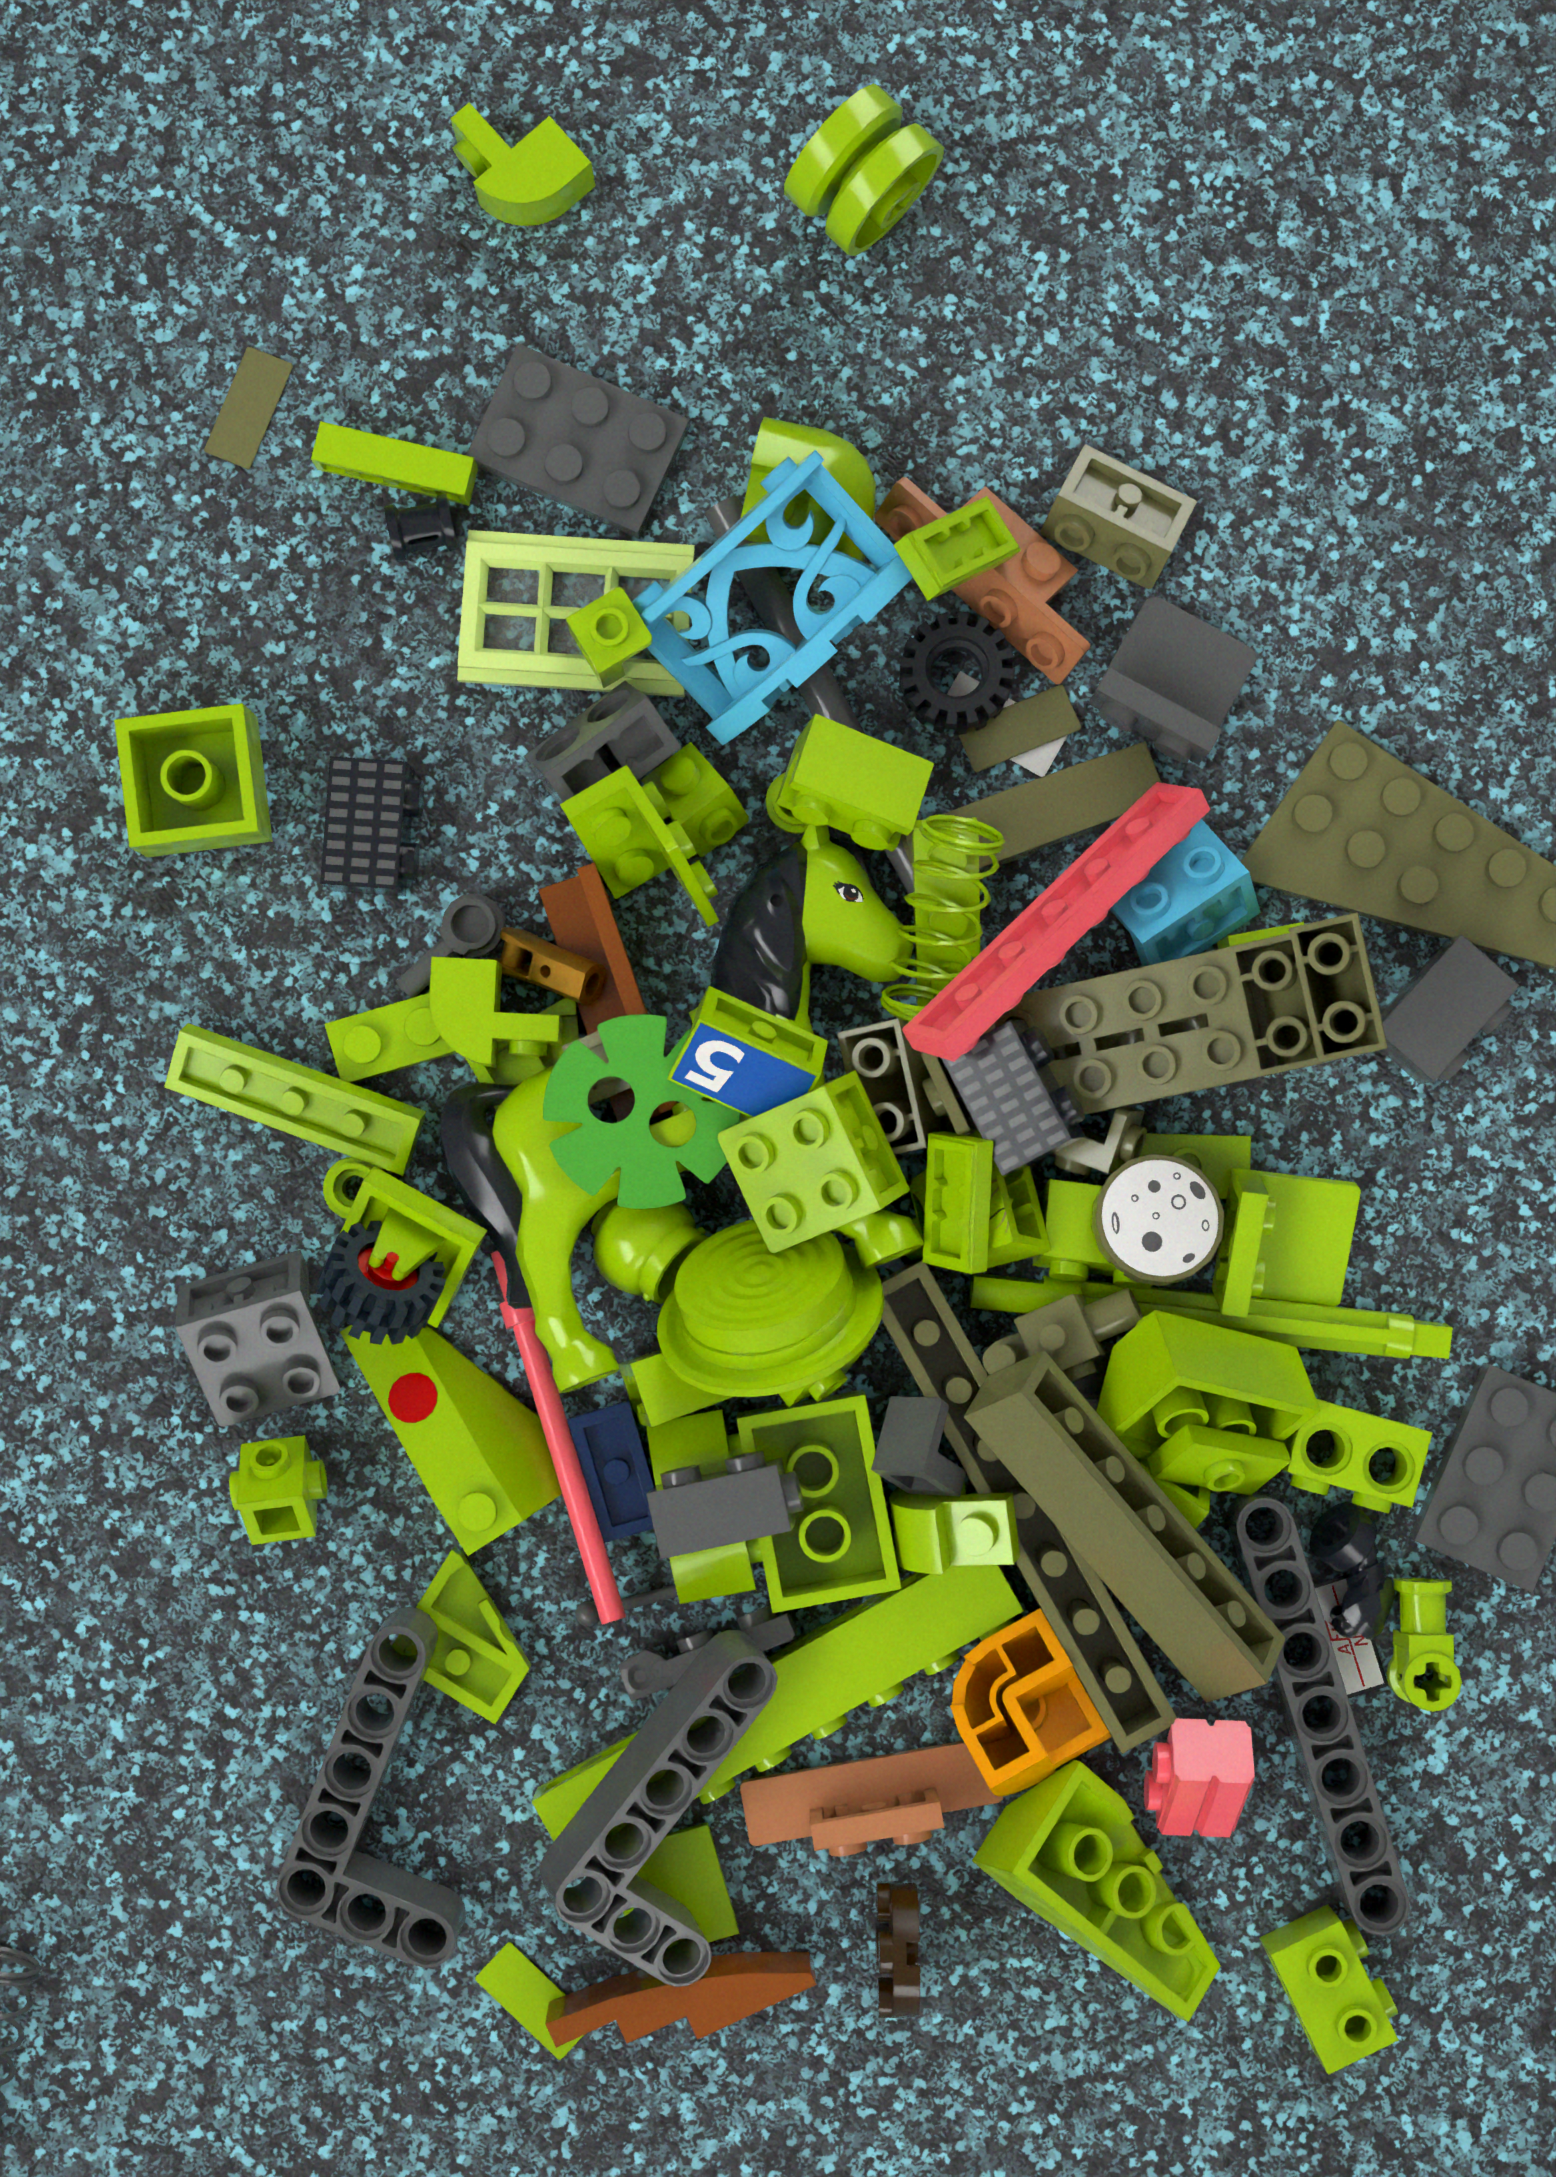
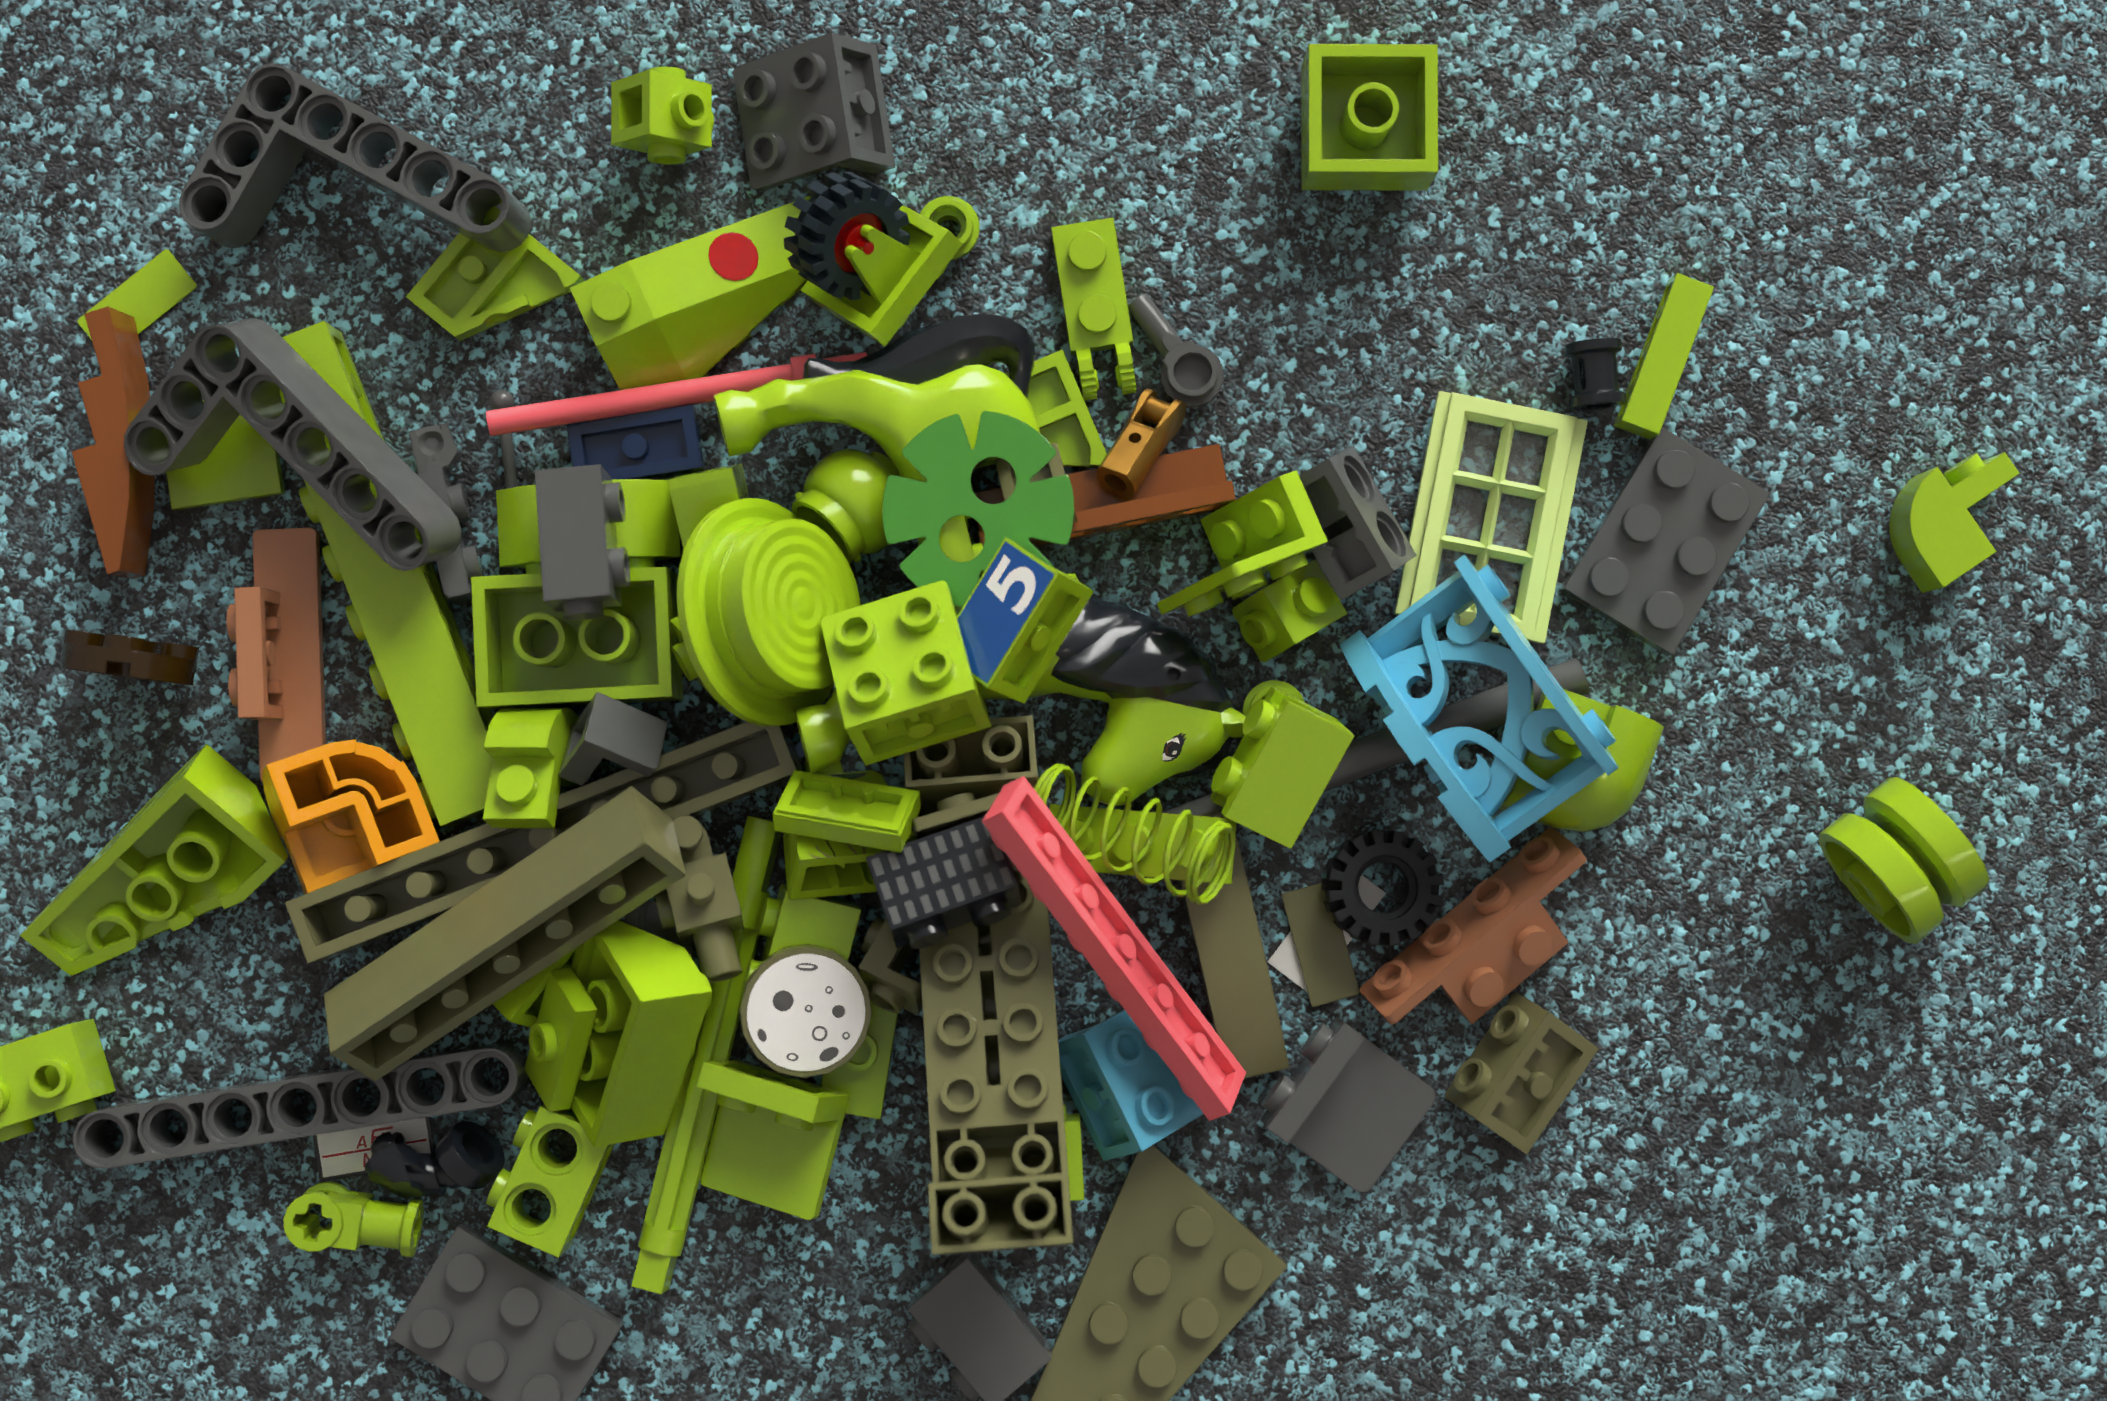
camera: 95 degrees right, 0 degrees up
(248, 407) = (1738, 220): olive sticker -> none
(294, 1099) = (1042, 179): lime plate -> none
(370, 826) = (1302, 286): black brick -> none
(468, 1014) = (1102, 355): lime brick -> none
(609, 634) = (1462, 542): lime bracket -> none
(957, 548) = (1504, 900): lime plate -> none
(1200, 1777) = (251, 977): coral brick -> none

